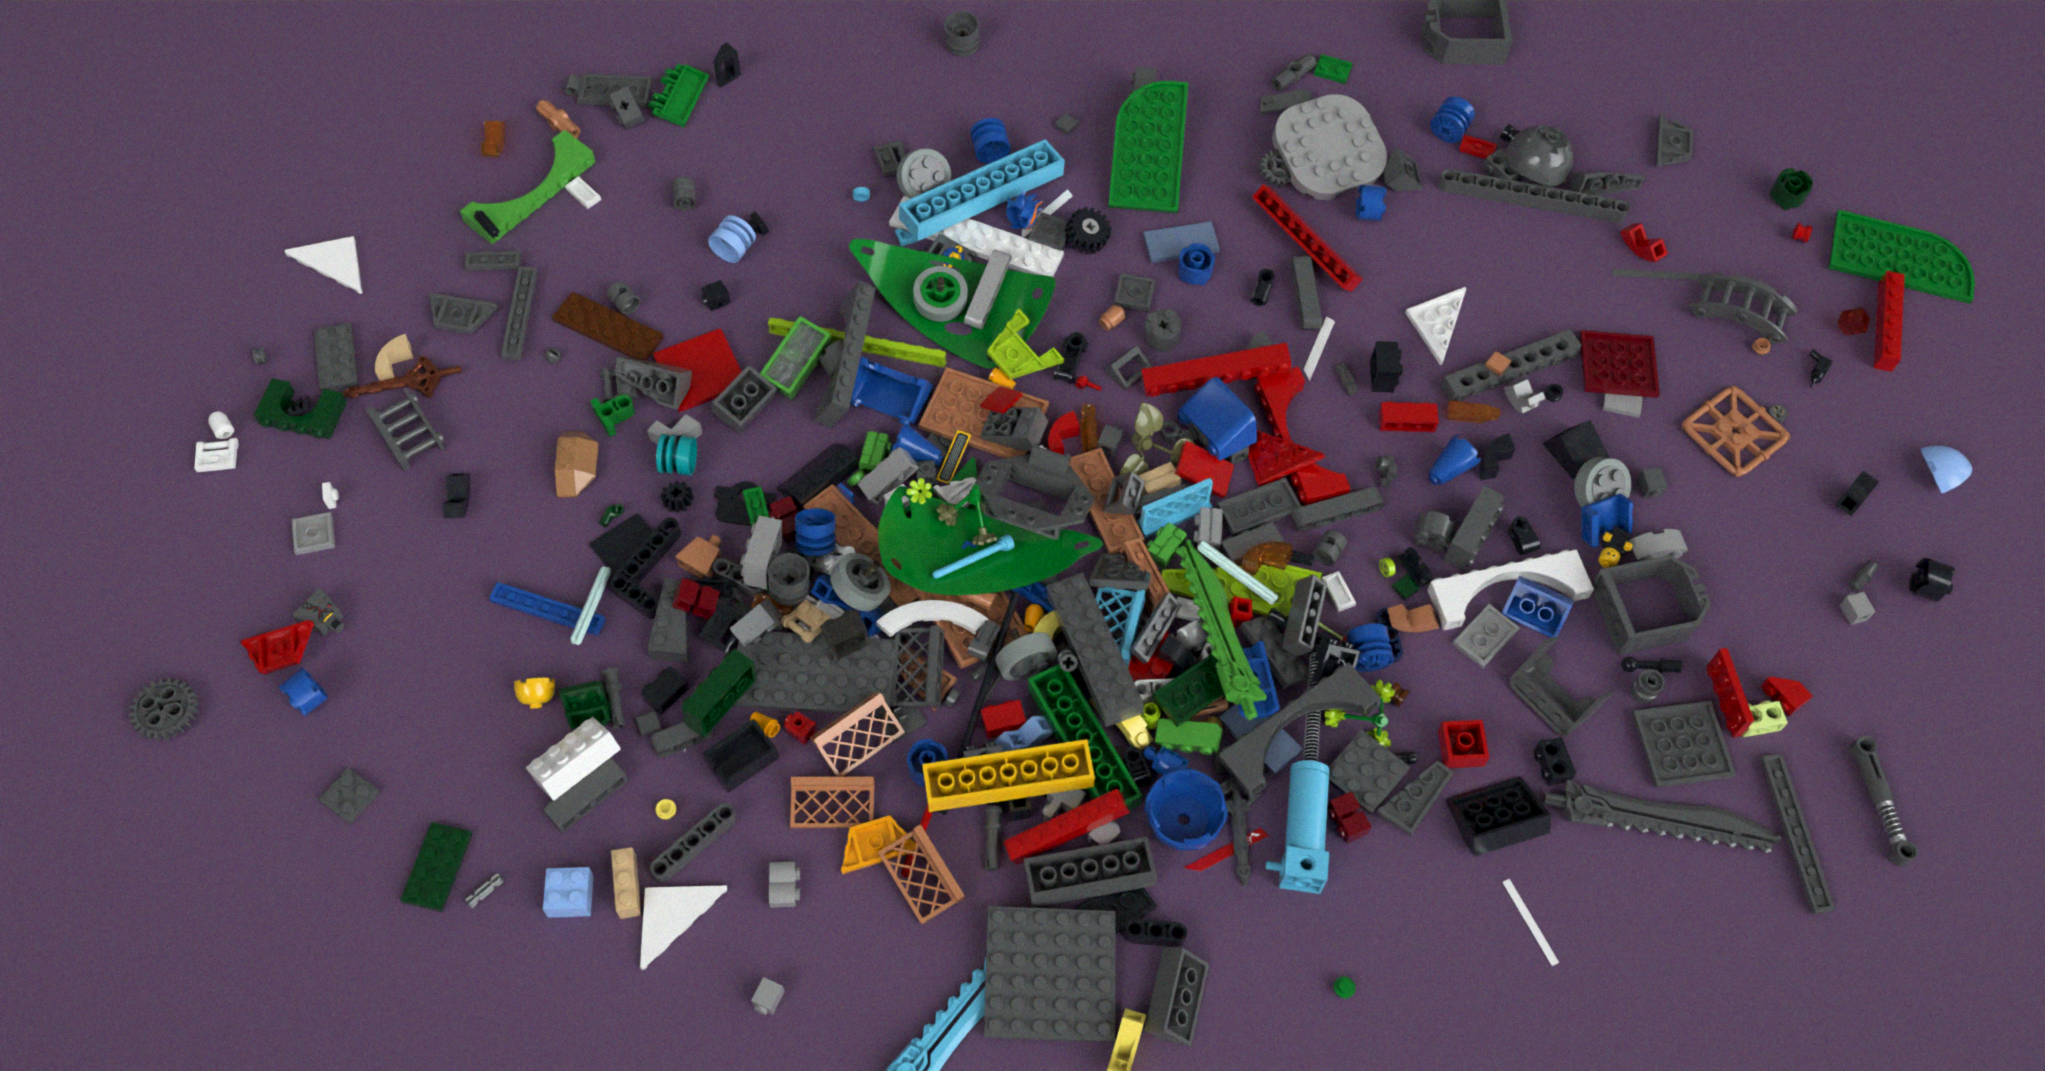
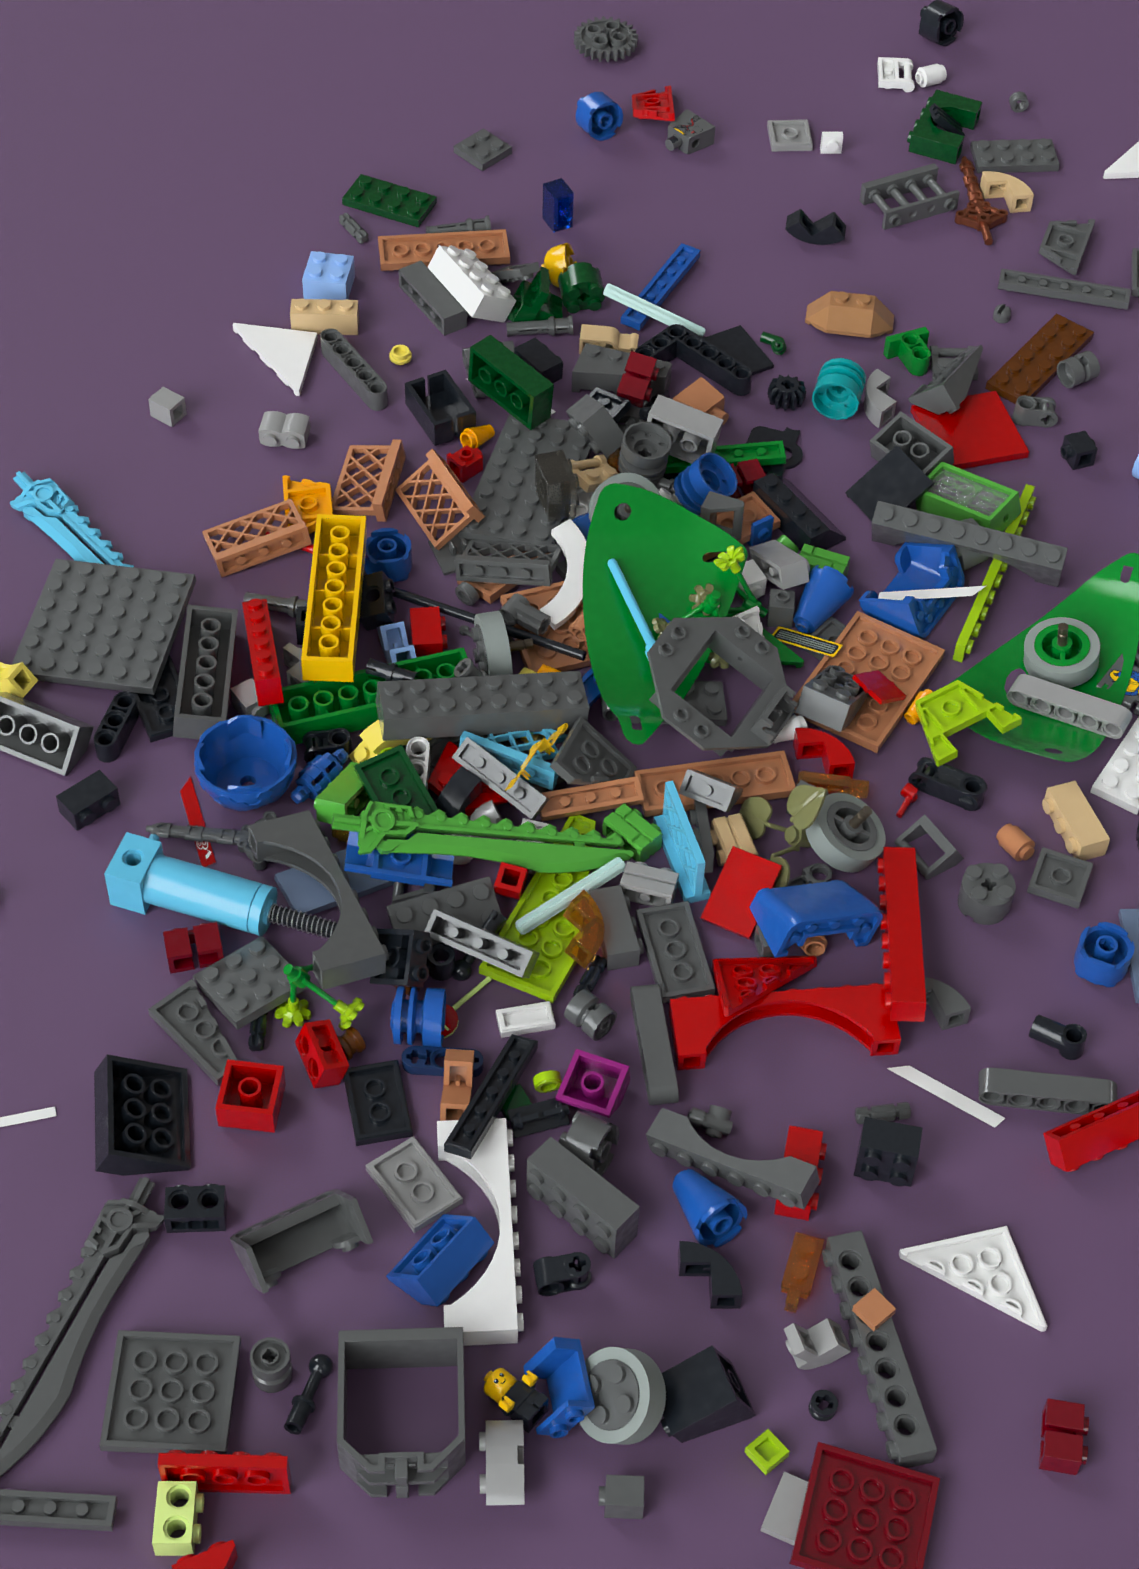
camera: 100 degrees right, 10 degrees down
(143, 419) = (940, 22): none -> black brick
(448, 705) = (557, 205): none -> clear blue brick
(477, 784) = (468, 225): none -> dark grey pin
(512, 800) = (404, 250): none -> nougat plate
(553, 723) = (517, 272): none -> dark grey plate
(567, 666) = (581, 287): none -> dark green brick
(628, 641) = (607, 337): none -> tan piece
(675, 326) = (1033, 410): none -> dark grey piece
(785, 412) = (891, 481): none -> black piece
(854, 516) = (720, 503): none -> dark grey tile
(898, 377) = (932, 593): none -> white sticker
(1072, 721) = (390, 672): none -> black pin
(1085, 284) = (1075, 821): none -> tan brick
(1127, 404) = (846, 833): none -> wheel
(1135, 602) = (542, 745): none -> yellow piece
(1235, 932) = (88, 800): none -> black brick
(1388, 535) = (594, 1083): none -> magenta slope
(1415, 593) = (490, 1096): none -> black tile
(1415, 706) = (322, 1053): none -> red brick
(1430, 414) = (783, 1178): none -> dark grey arch
(1432, 670) = (377, 1103): none -> black tile
(1539, 273) = (1063, 1440): none -> dark red piece
(1596, 415) = (767, 1451): none -> lime plate

